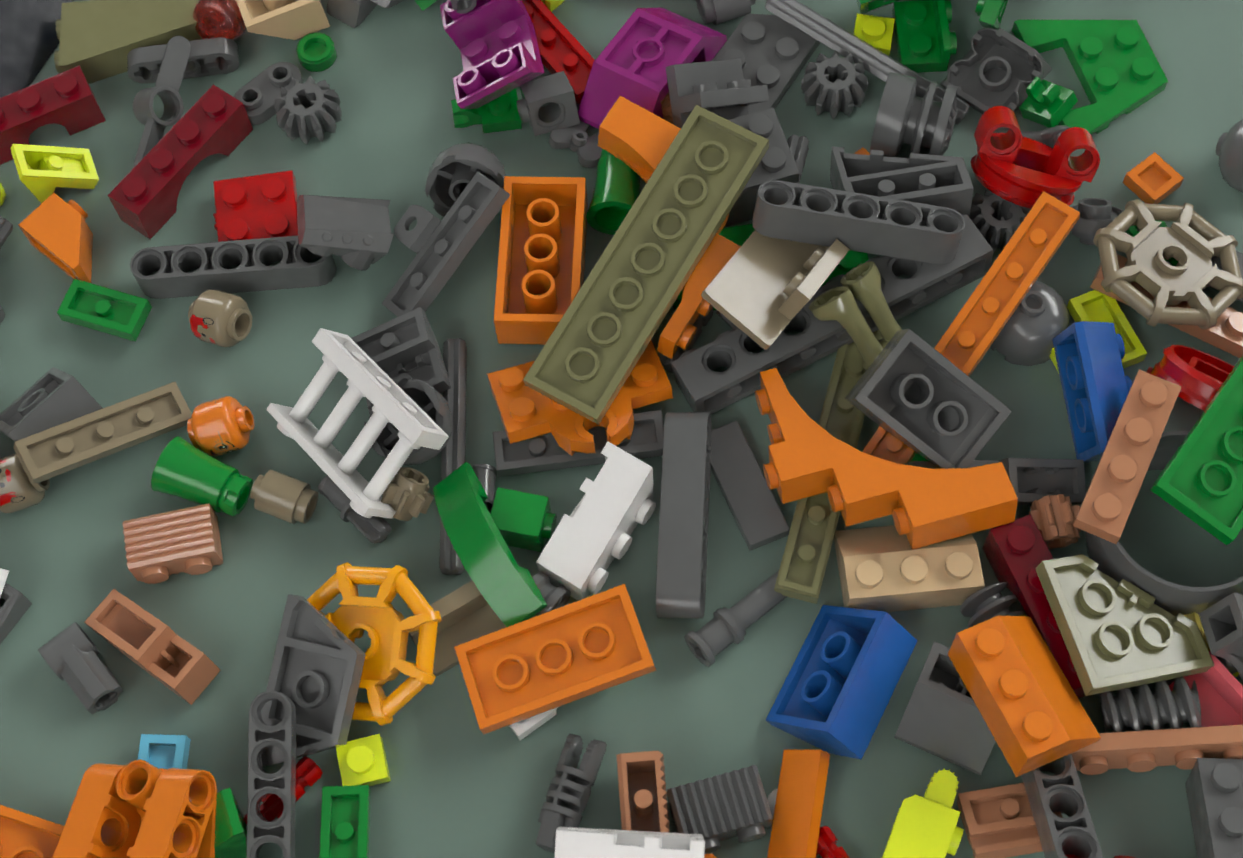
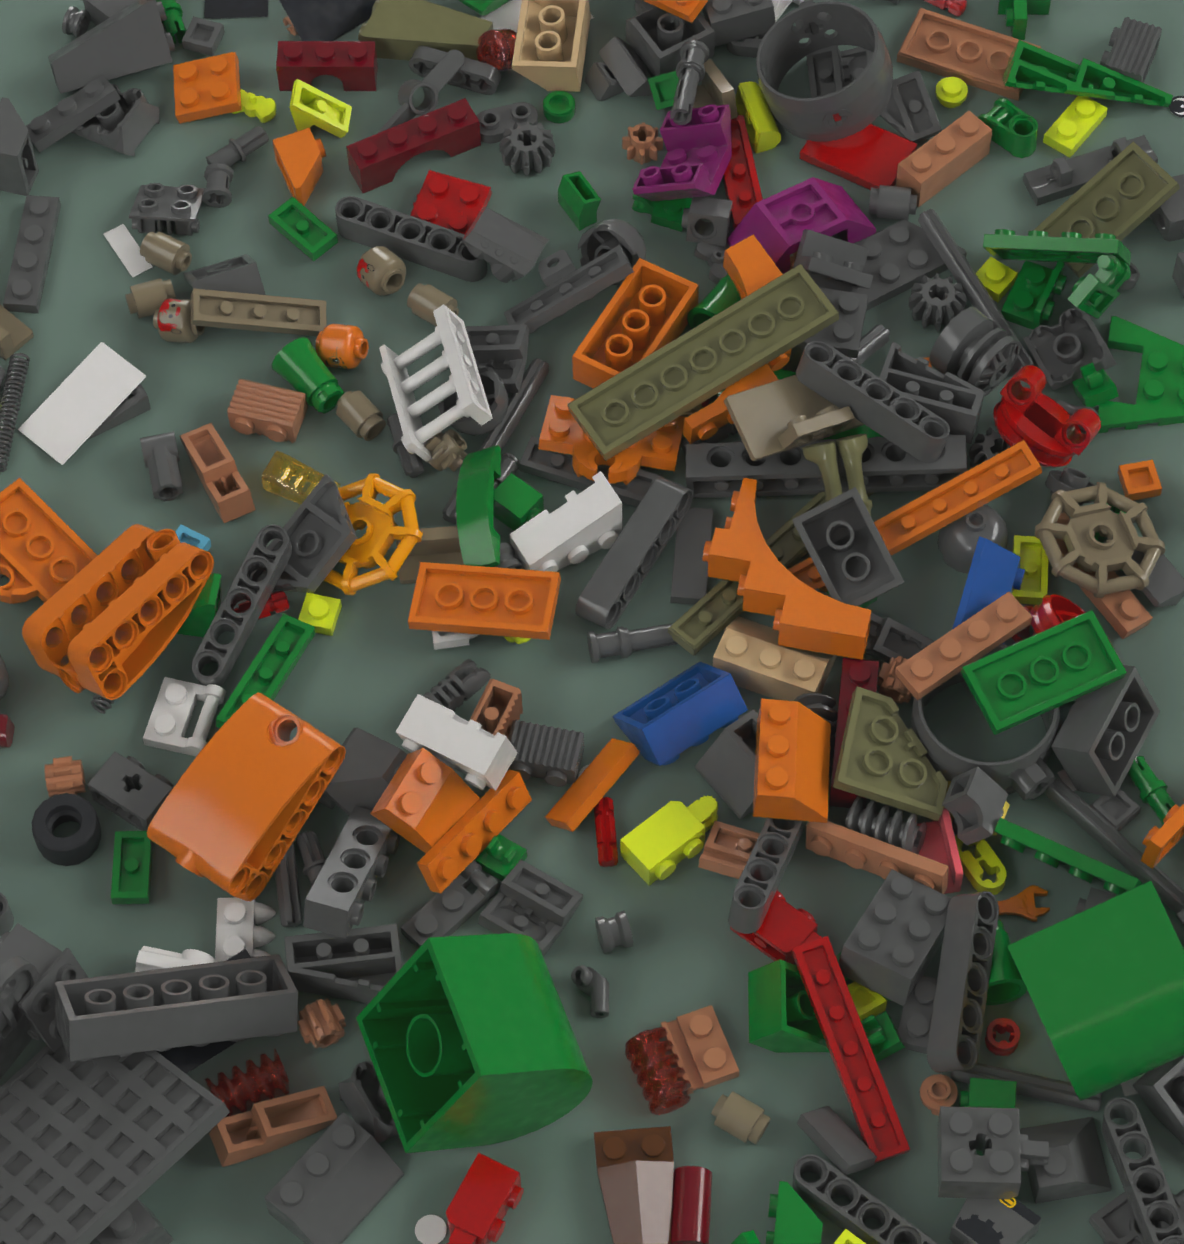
camera: 25 degrees right, 5 degrees down
(239, 597) = (291, 467): none -> clear yellow slope
(296, 330) = (426, 299): none -> dark tan brick
(395, 142) = (578, 199): none -> green piece
(429, 52) = (642, 143): none -> nougat gear

